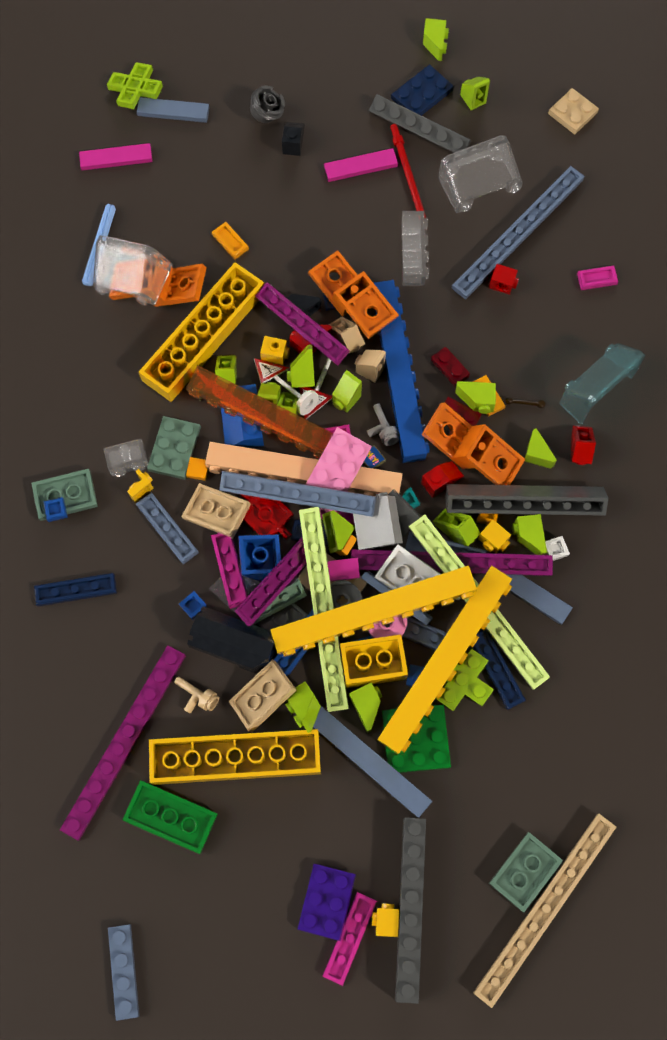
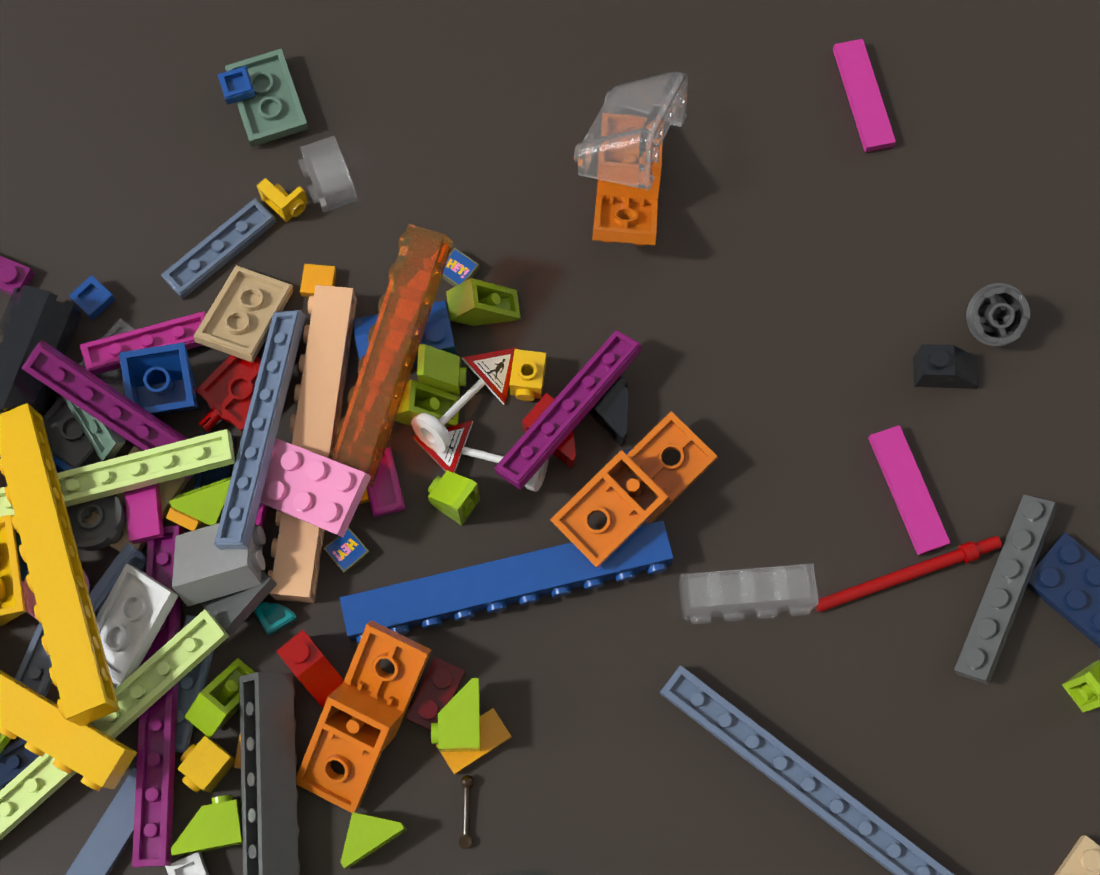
camera: 85 degrees right, 0 degrees up
(75, 589) = (121, 134): dark blue tile -> none
(103, 230) = (720, 93): light blue axle -> none
(134, 85) = (1002, 104): lime plate -> none
(173, 109) = (969, 171): sand blue tile -> none
(173, 447) = (352, 241): sand green plate -> none
(201, 332) = (548, 257): yellow brick -> none
(230, 240) = (730, 287): light orange tile -> none
(302, 369) = (489, 421): lime slope -> none
(347, 334) = (562, 486): tan slope -> none
(371, 364) = (510, 531): tan slope -> none
(388, 434) = (386, 574): light grey piece -> none
(450, 366) = (525, 672): dark red plate -> none
(479, 172) = (915, 705): clear windscreen -> none
(504, 279) = (703, 760): red brick -> none

